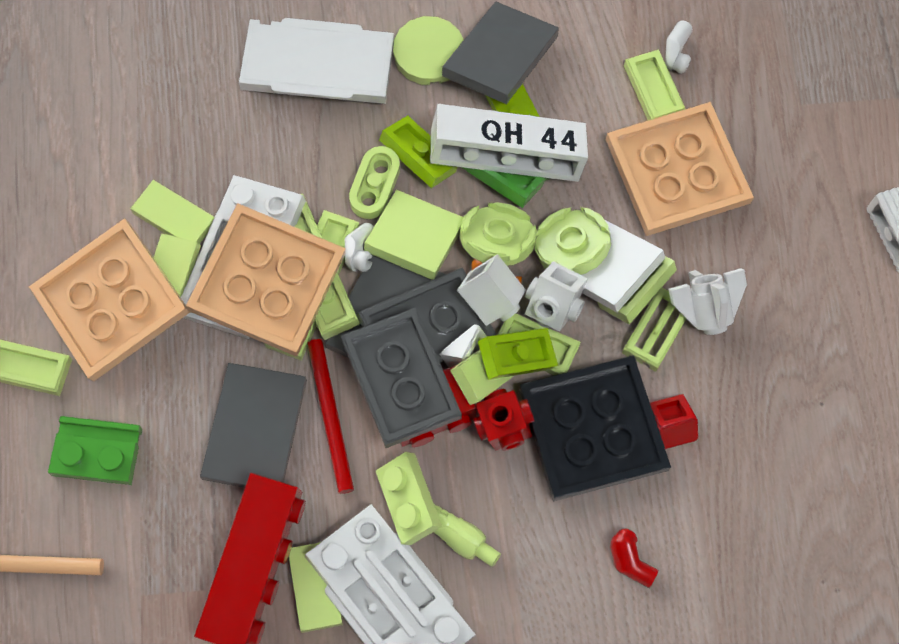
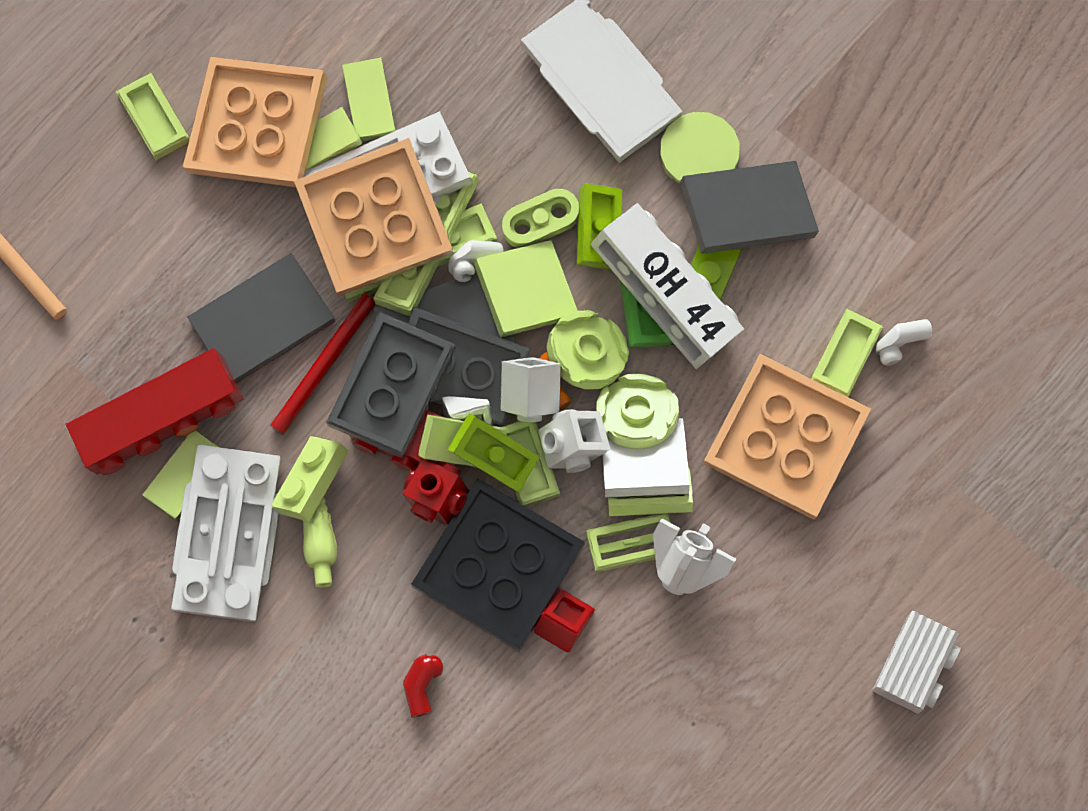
camera: 50 degrees right, 5 degrees up
(95, 450) = (138, 226): bright green plate -> none

